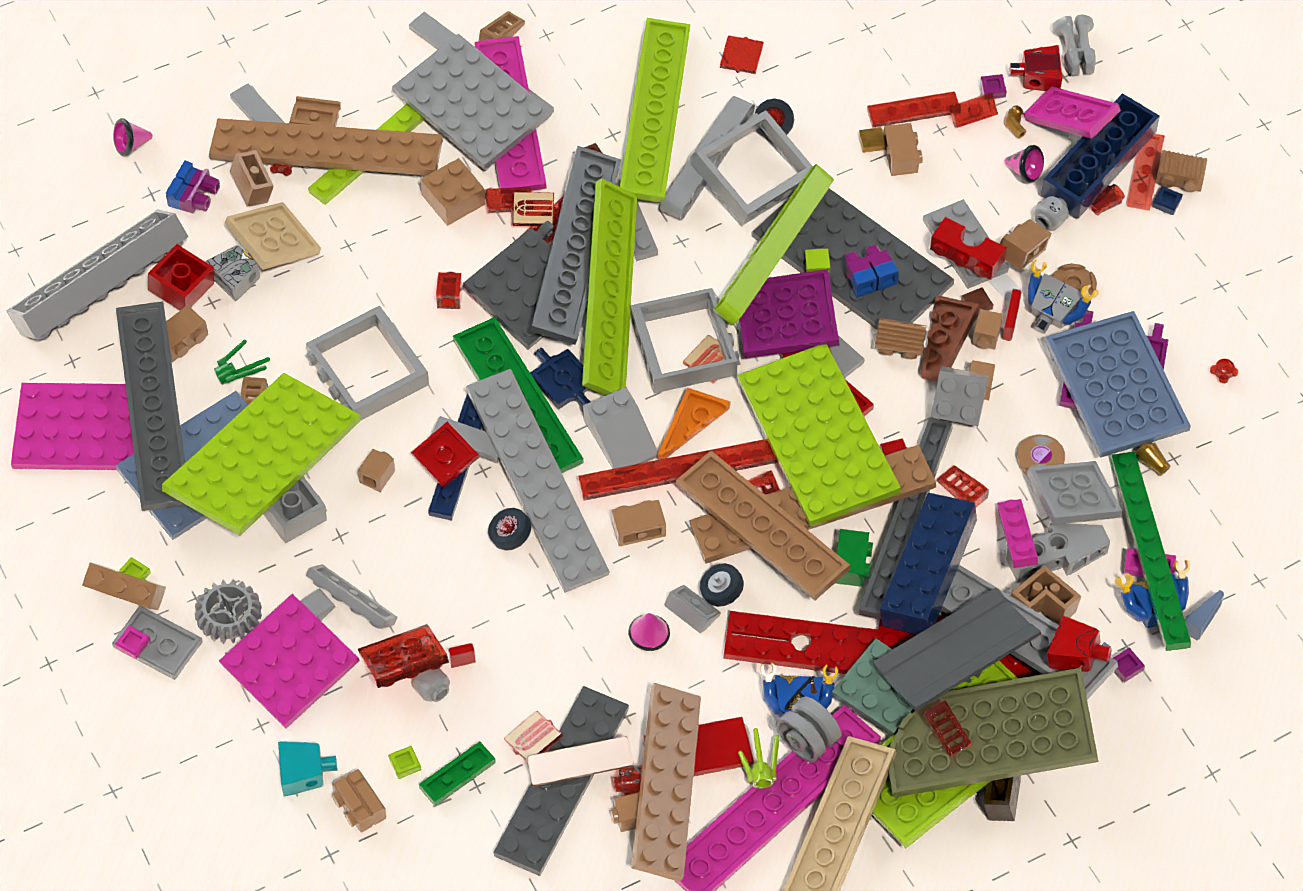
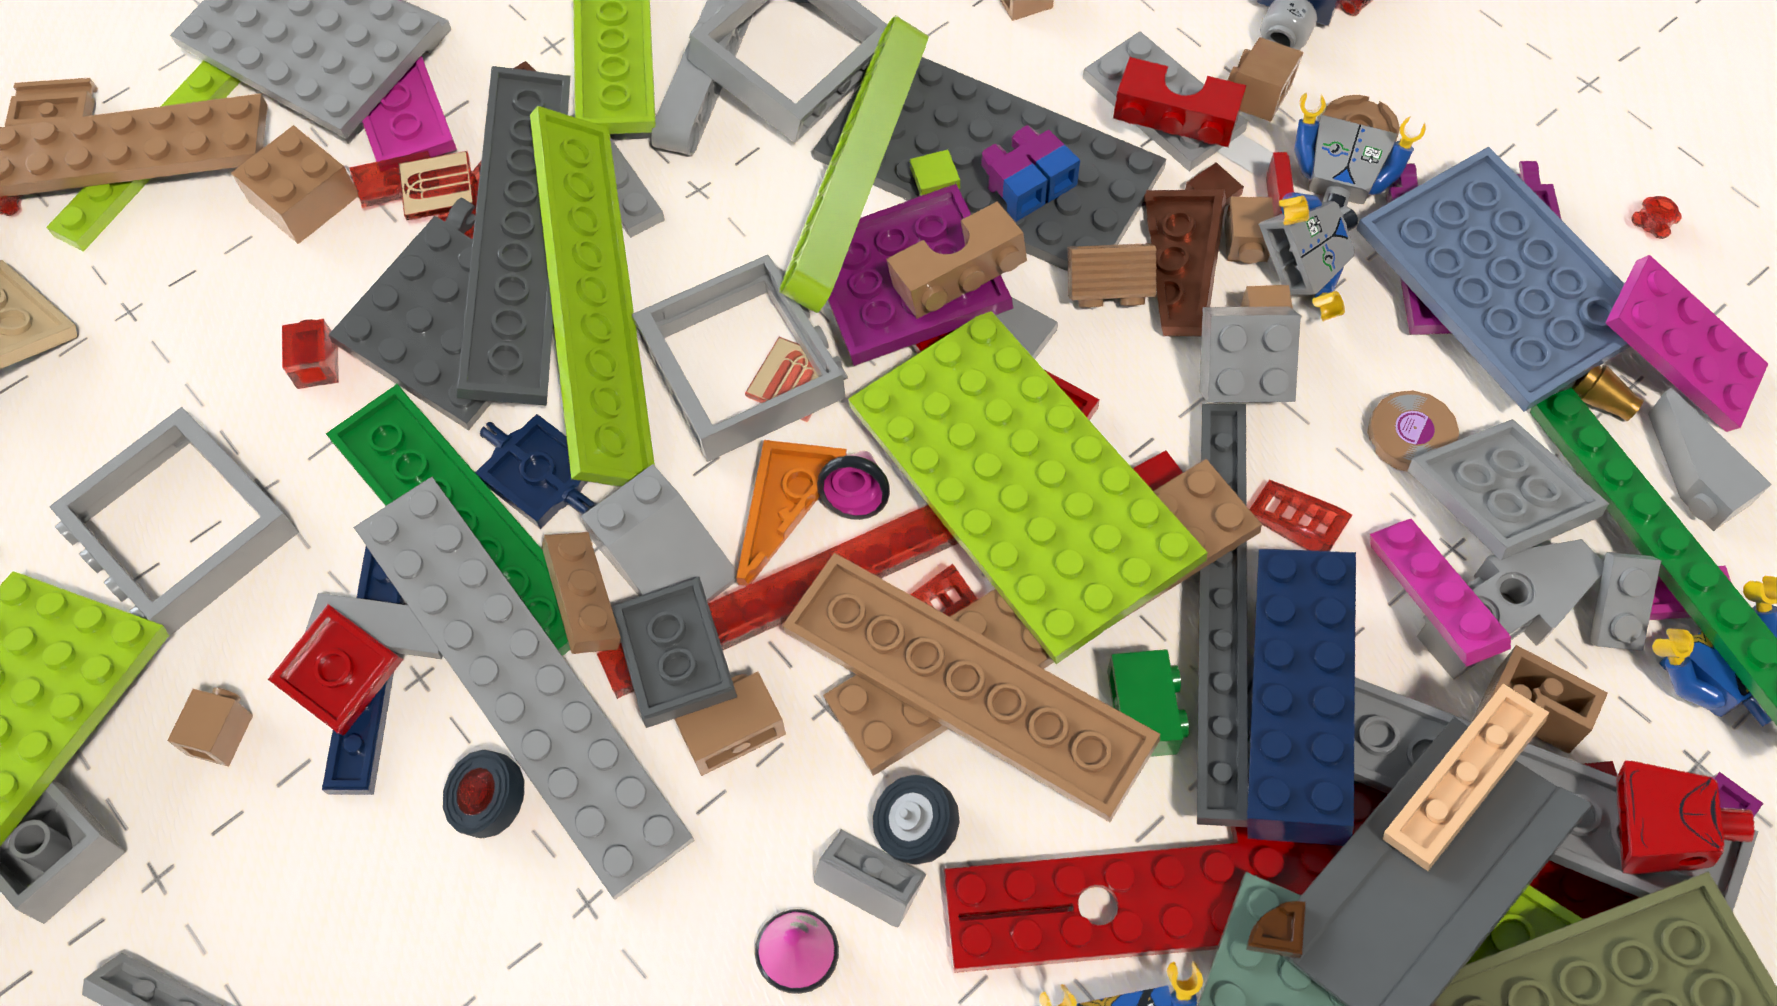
camera: 10 degrees left, 5 degrees up
(575, 443) = (580, 593): none -> medium nougat plate
(618, 481) = (673, 652): none -> dark grey tile
(729, 421) = (854, 486): none -> dark pink hat
(798, 321) = (932, 279): none -> medium nougat arch
(879, 659) = (1280, 931): none -> reddish brown tile
(988, 610) = (1465, 777): none -> light nougat plate
(1015, 346) = (1311, 248): none -> light grey torso
(1113, 559) = (1624, 601): none -> light grey plate
(1190, 511) = (1703, 464): none -> light grey slope
(1201, 440) = (1687, 343): none -> dark pink plate

